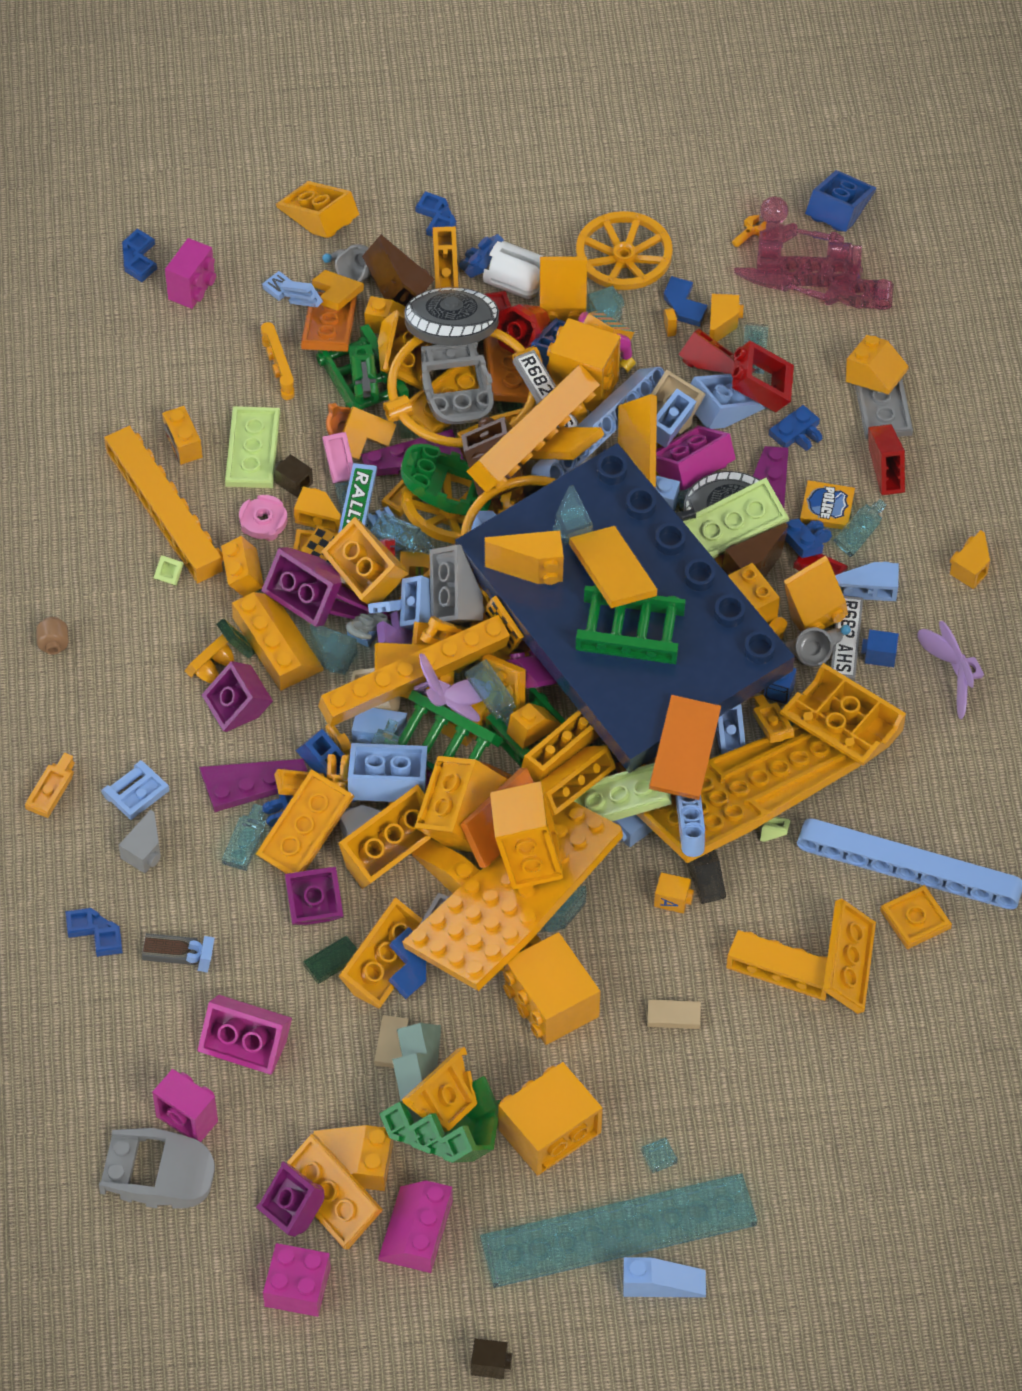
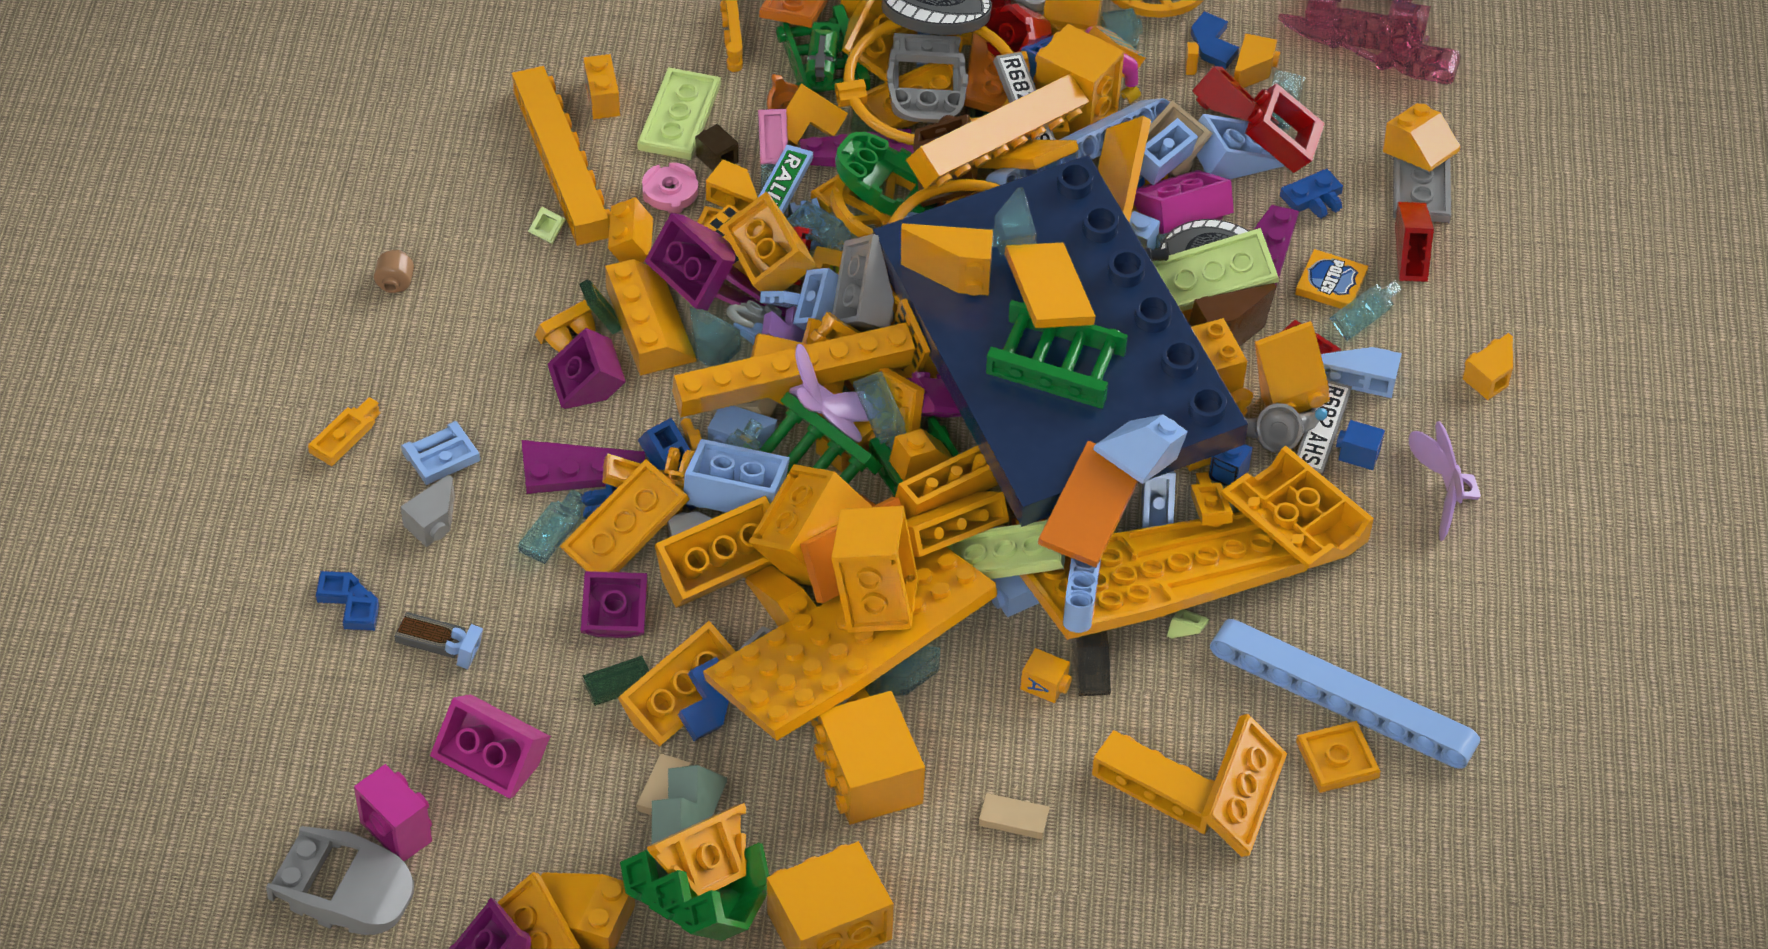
camera: 10 degrees right, 5 degrees down
(716, 692) = (1143, 446): none -> light blue slope
(807, 539) = (1298, 310): blue hinge -> none

